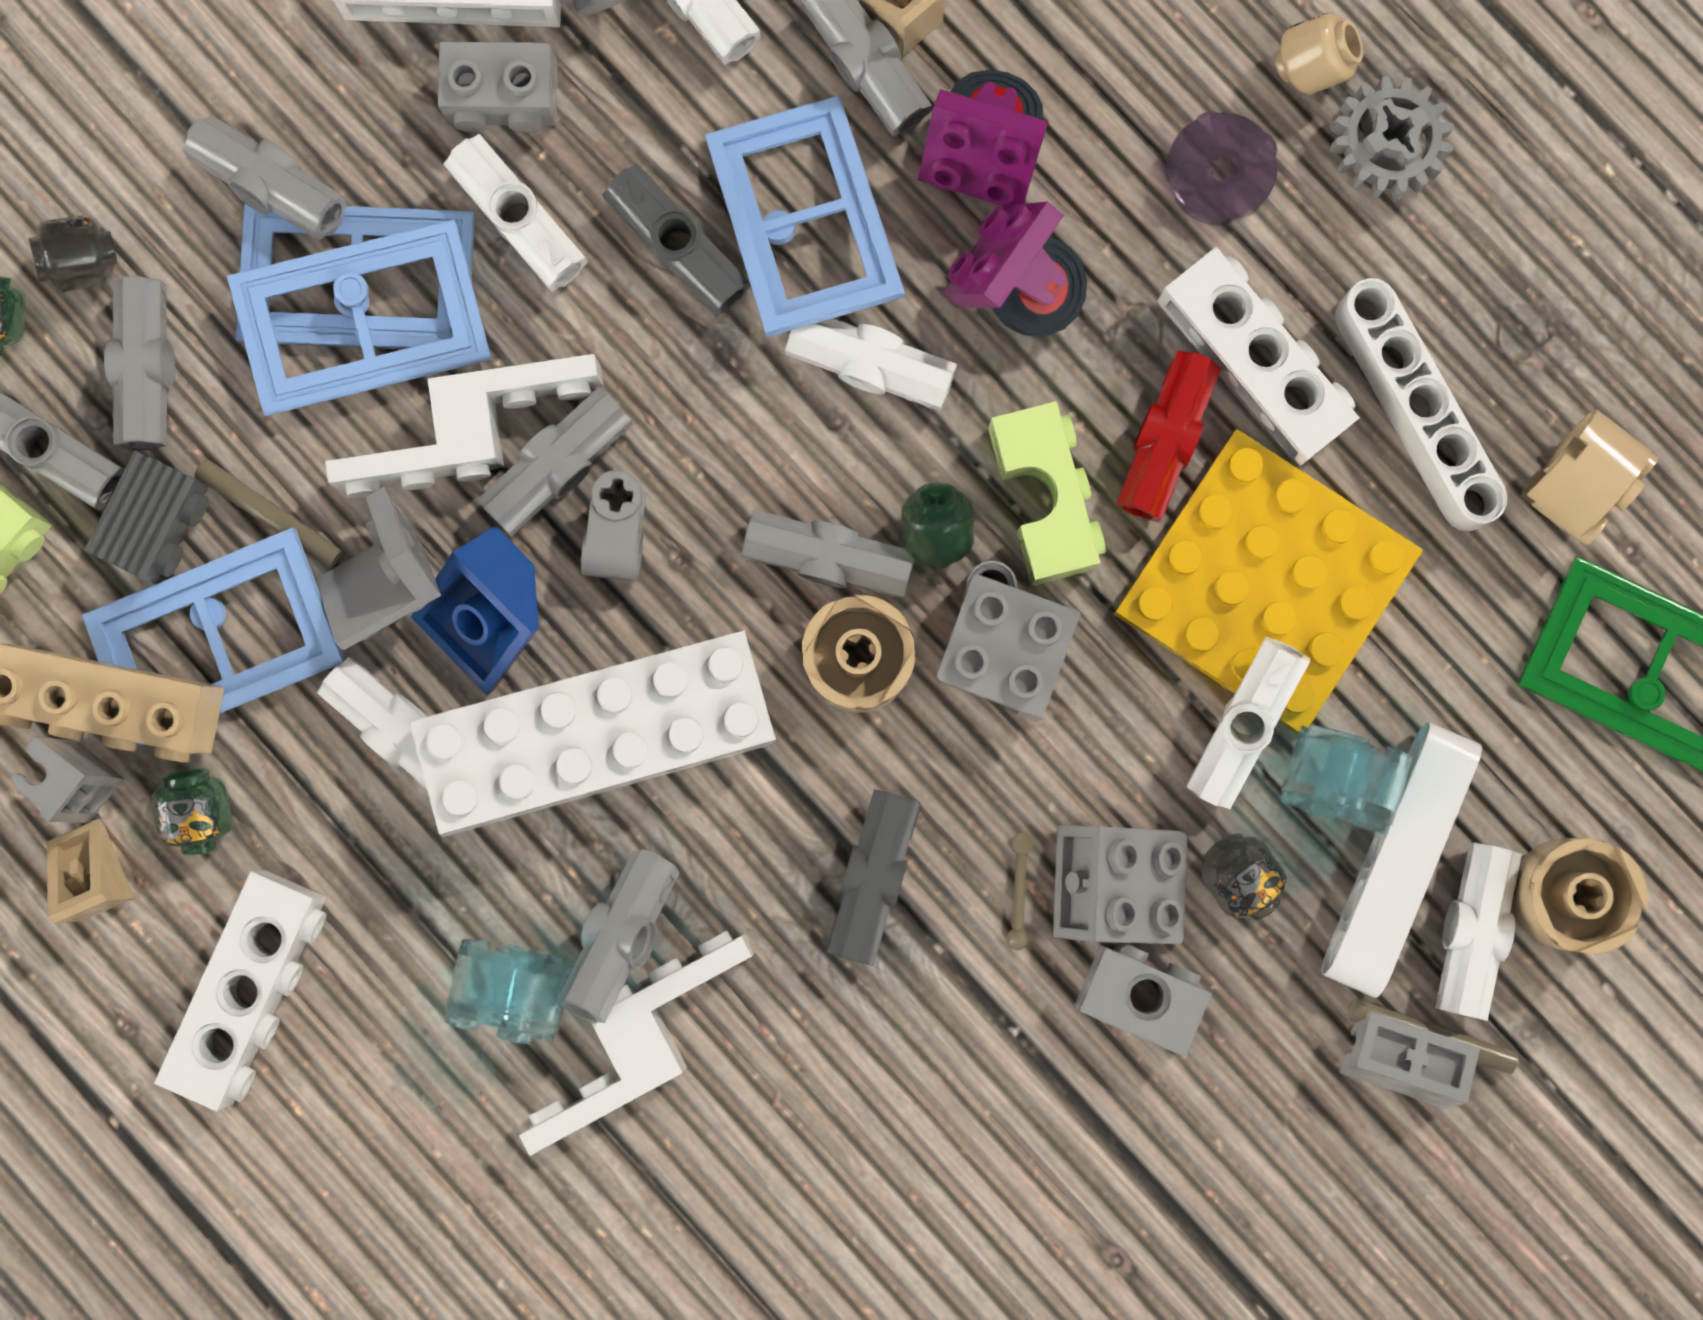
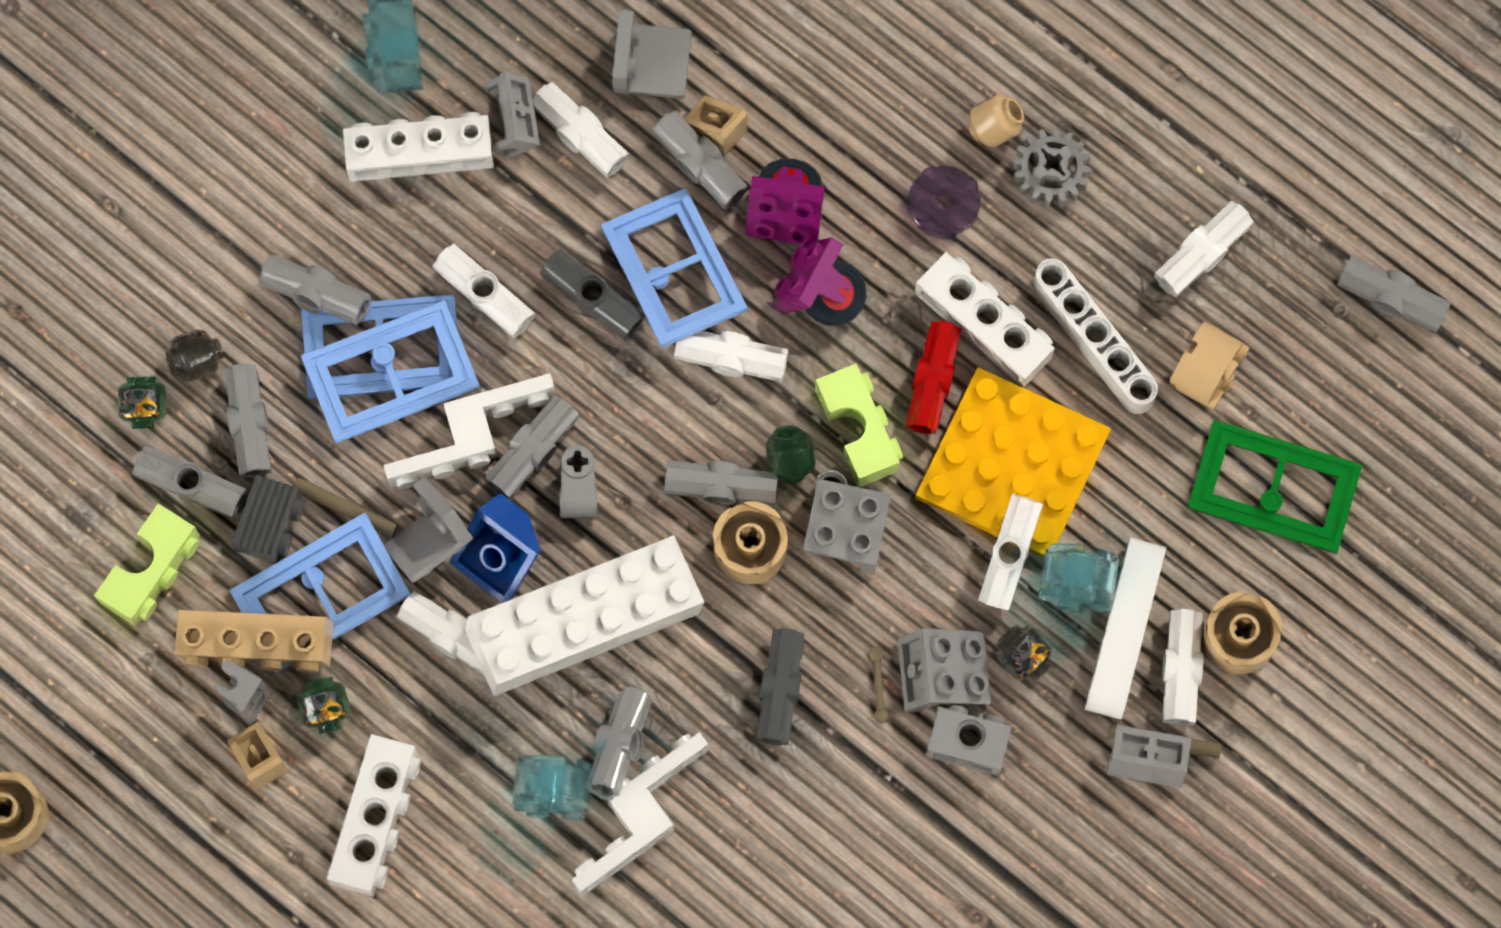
camera: 10 degrees left, 10 degrees down
(498, 85) = (460, 211): light grey brick -> none
(1603, 293) = (1204, 249): none -> white piece

